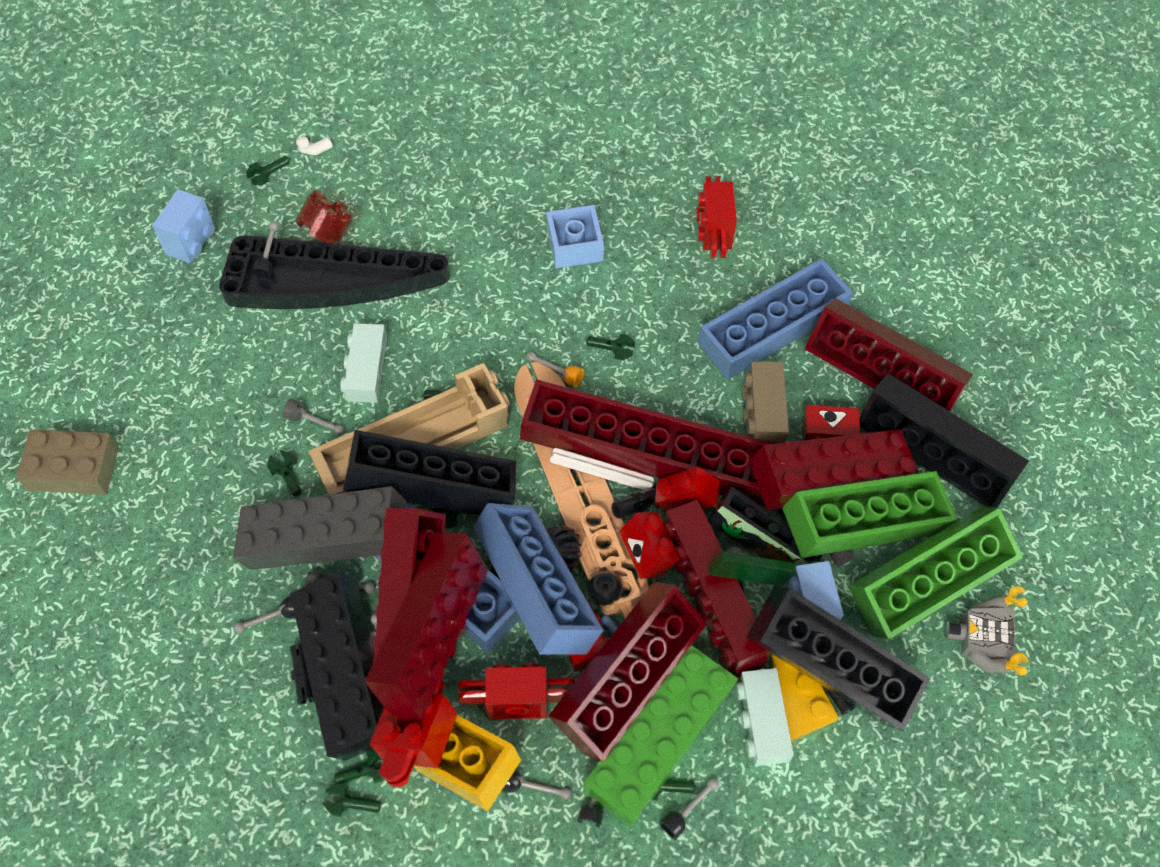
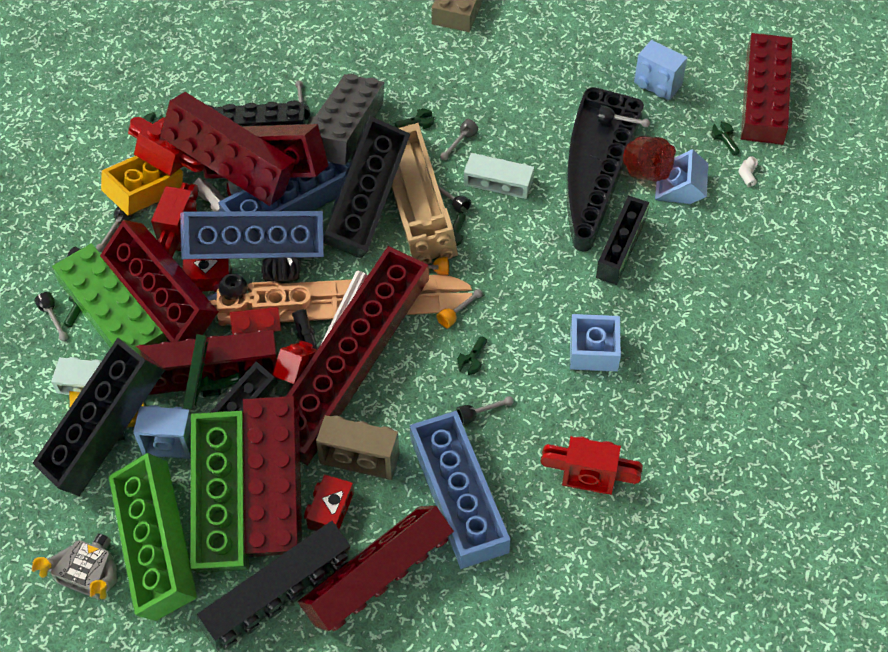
camera: 105 degrees right, 5 degrees down
(192, 136) = (767, 89): none -> dark red brick
(343, 187) = (686, 180): none -> light blue slope
(410, 396) = (458, 201): none -> black hinge
(437, 231) = (622, 240): none -> black brick
(468, 660) = (209, 193): none -> white plate
(510, 392) = (440, 266): none -> light orange hinge
(684, 334) = (468, 413): none -> hinge

